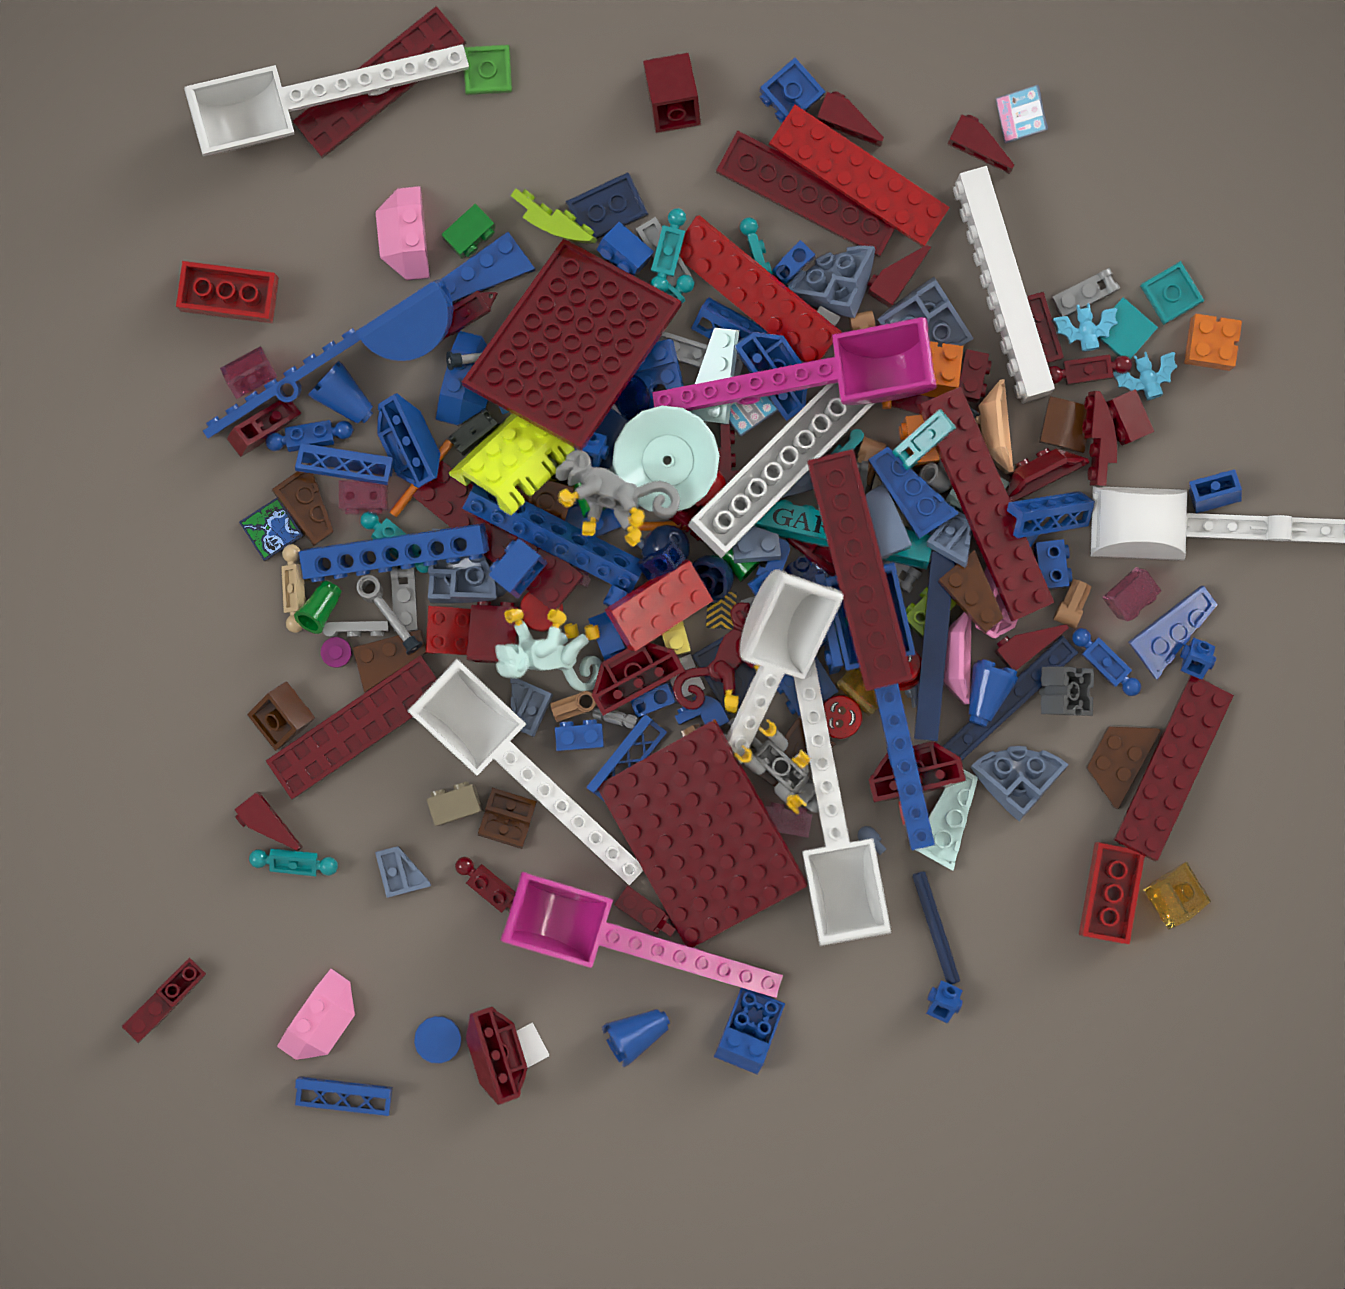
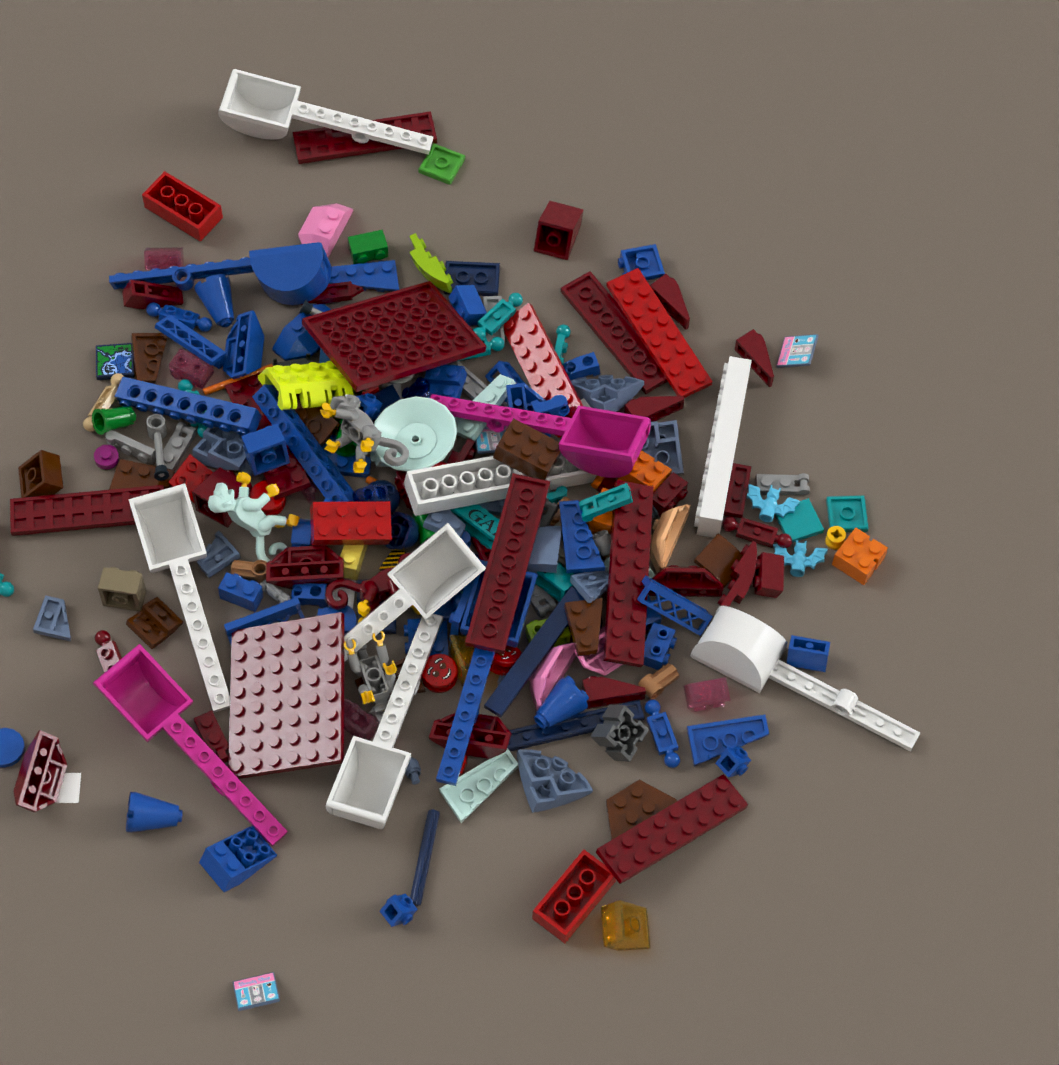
camera: 25 degrees right, 25 degrees down
(799, 348) = (556, 406): none -> blue leg
(805, 419) = (527, 450): none -> reddish brown brick
(850, 1159) = (256, 991): none -> piece
(1170, 333) = (831, 539): none -> yellow wheel

